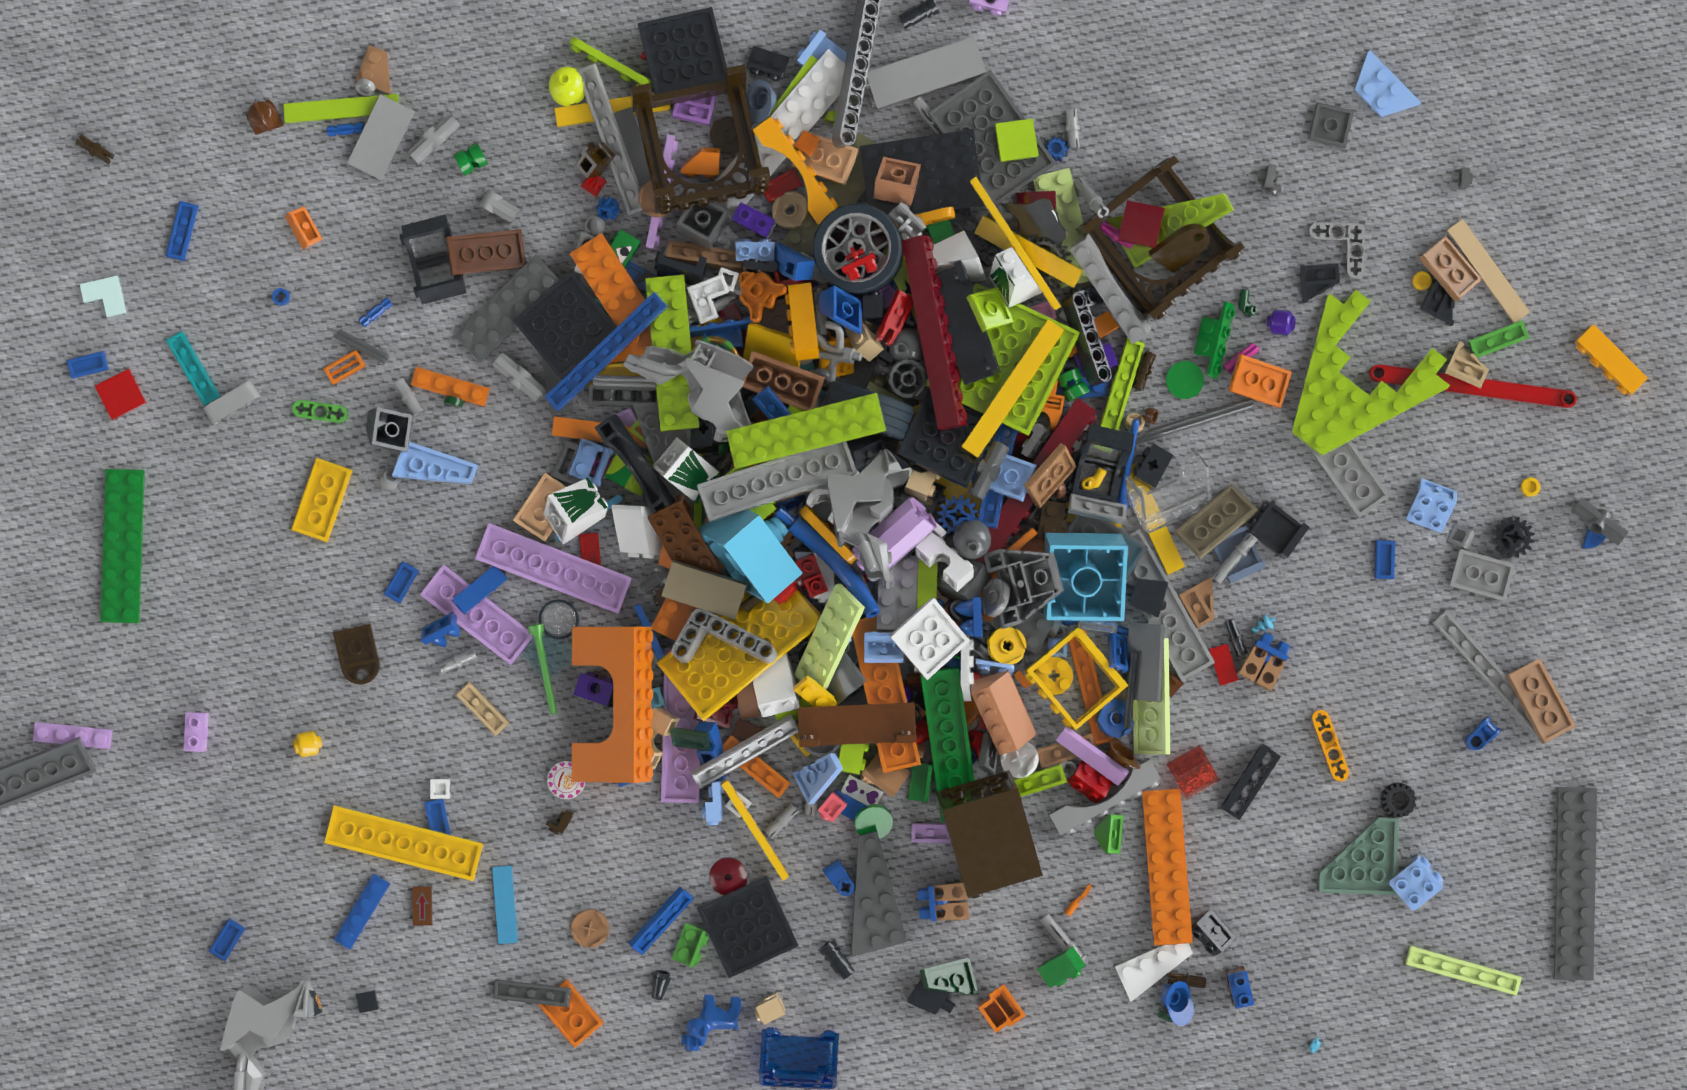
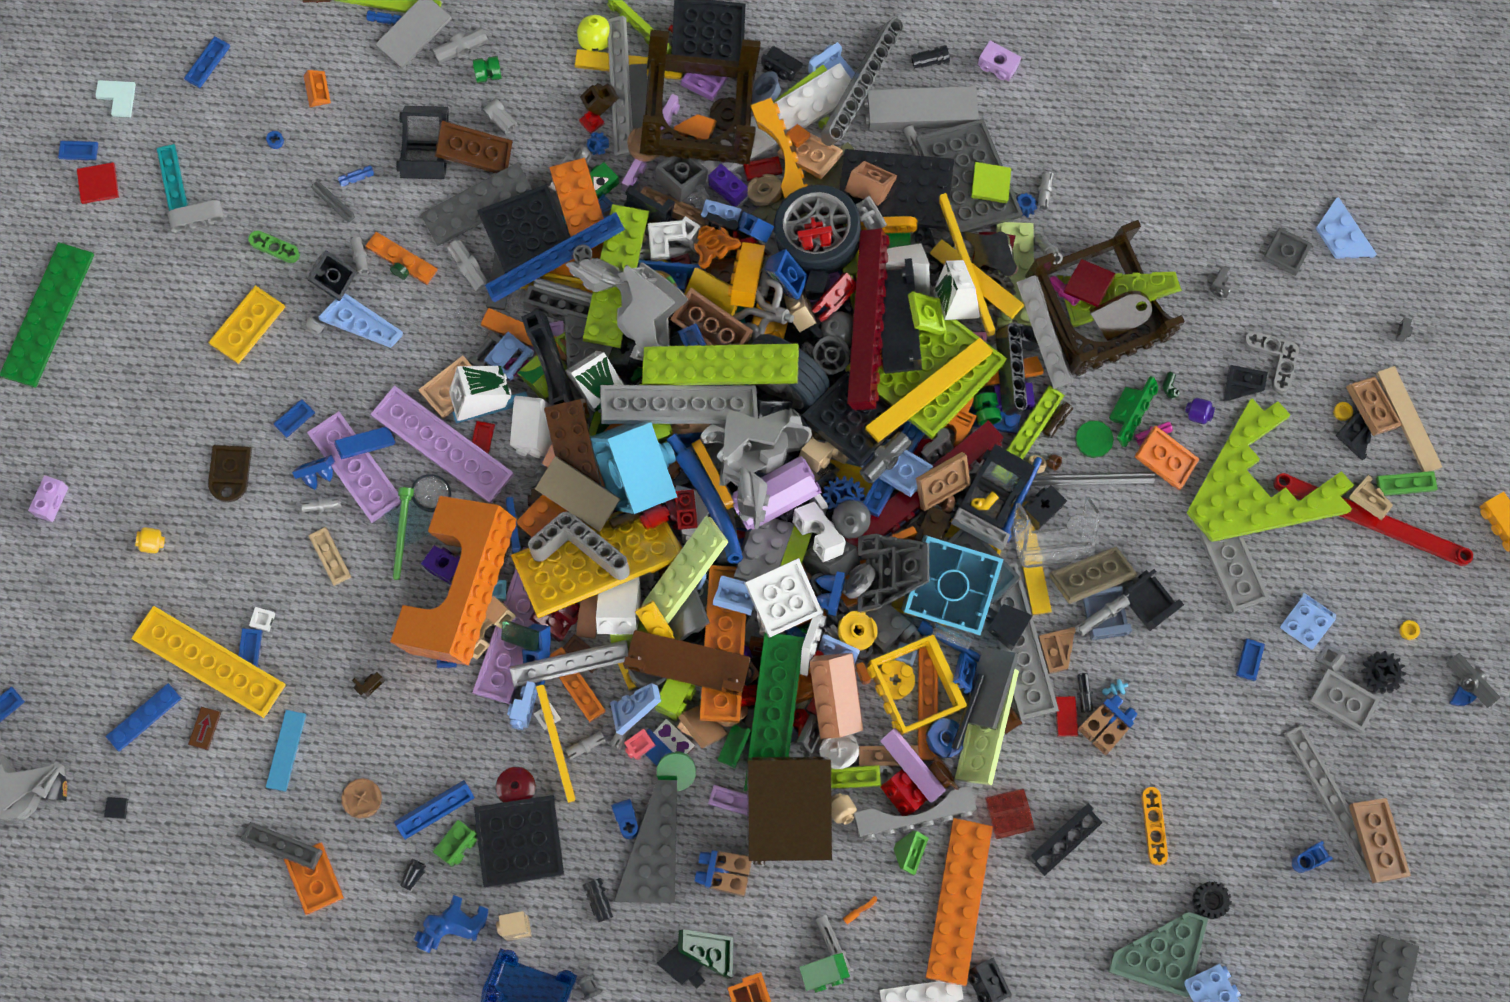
camera: 15 degrees right, 15 degrees down
(347, 374) = (311, 215): orange tile -> none
(561, 782) = (381, 648): white tile -> none
(636, 349) = (582, 252): none -> dark grey wheel
(851, 1039) = (588, 987): none -> dark grey bush
(1037, 813) = (843, 809): none -> tan head

